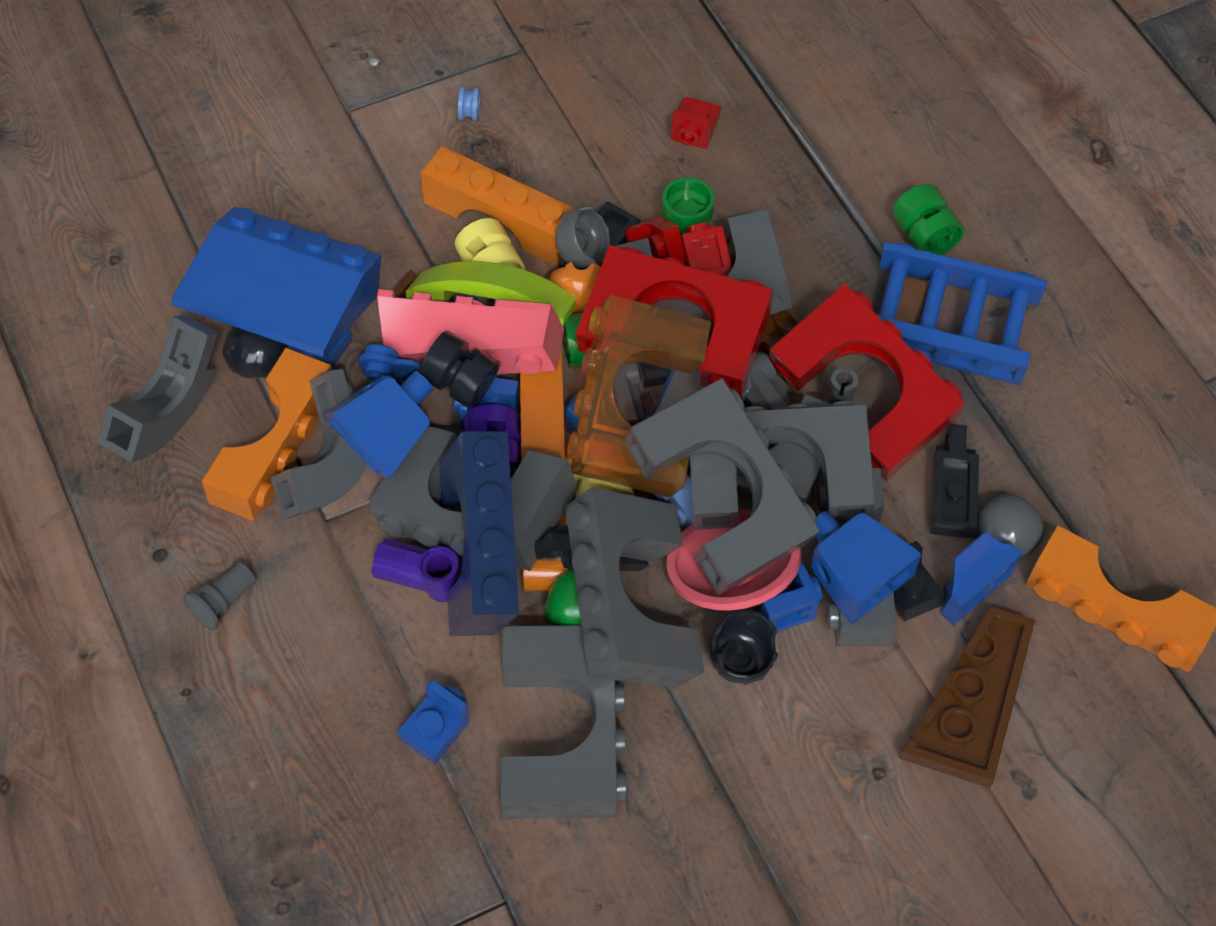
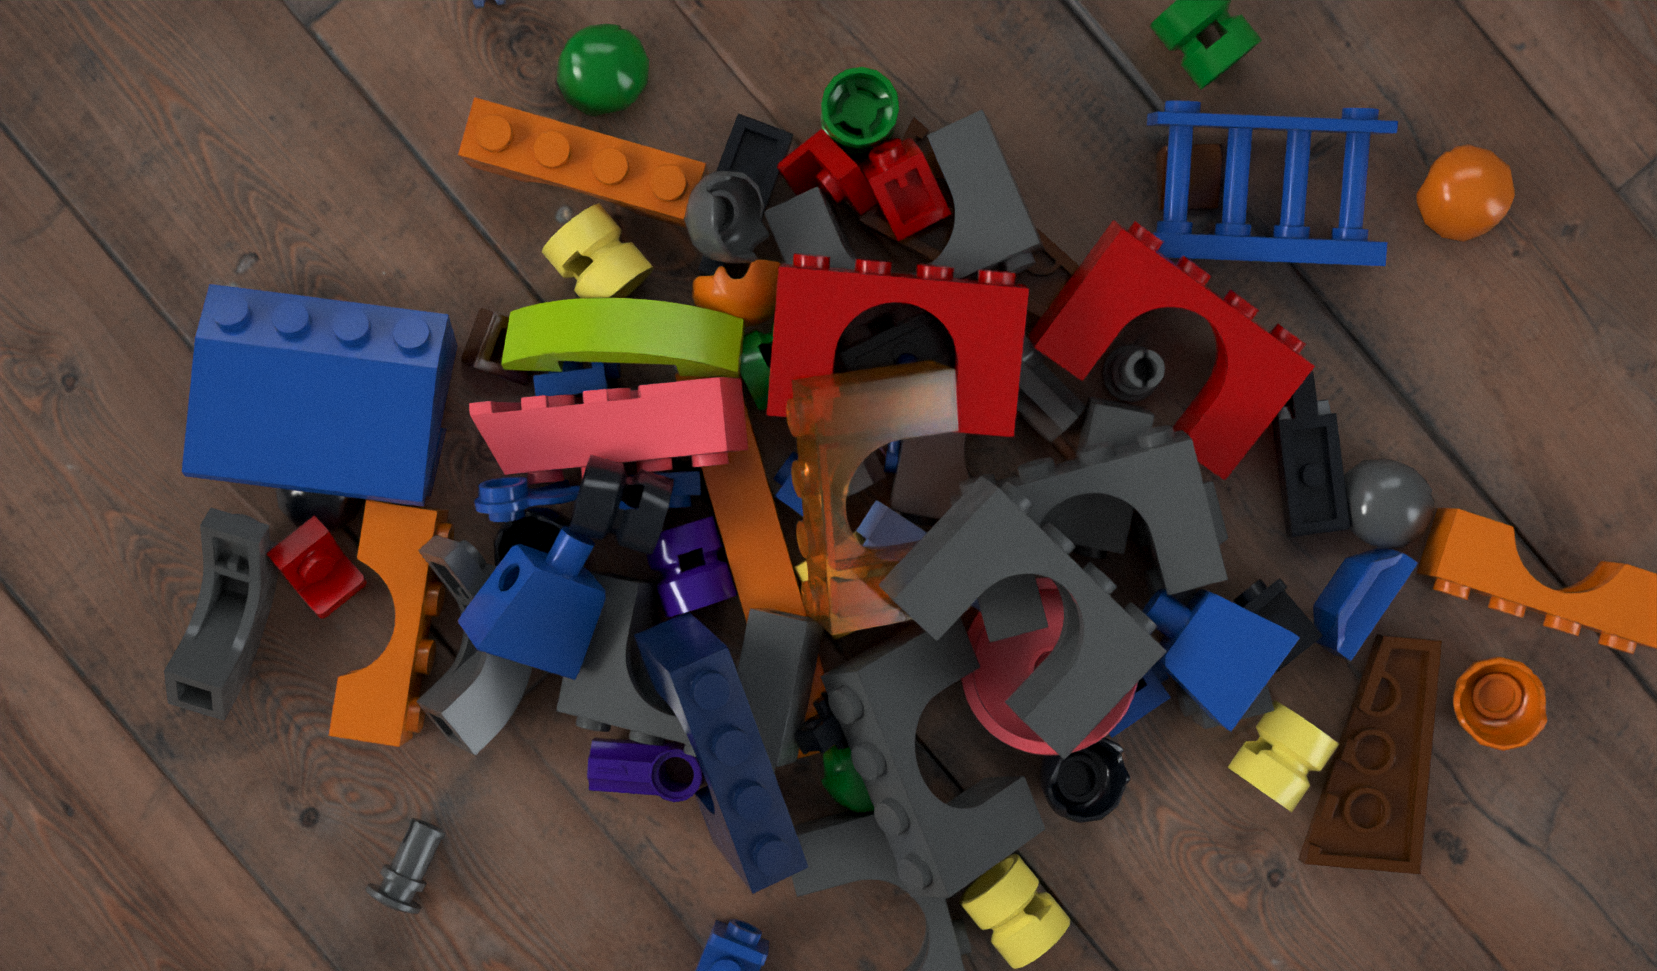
camera: 10 degrees left, 30 degrees up
(233, 383) = (317, 568): none -> red bracket
(529, 162) = (602, 69): none -> green hair
(663, 723) = (1021, 918): none -> light yellow wheel
(898, 668) = (1283, 755): none -> light yellow wheel
(1074, 672) = (1500, 703): none -> orange hair
(1094, 353) = (1466, 193): none -> orange hair

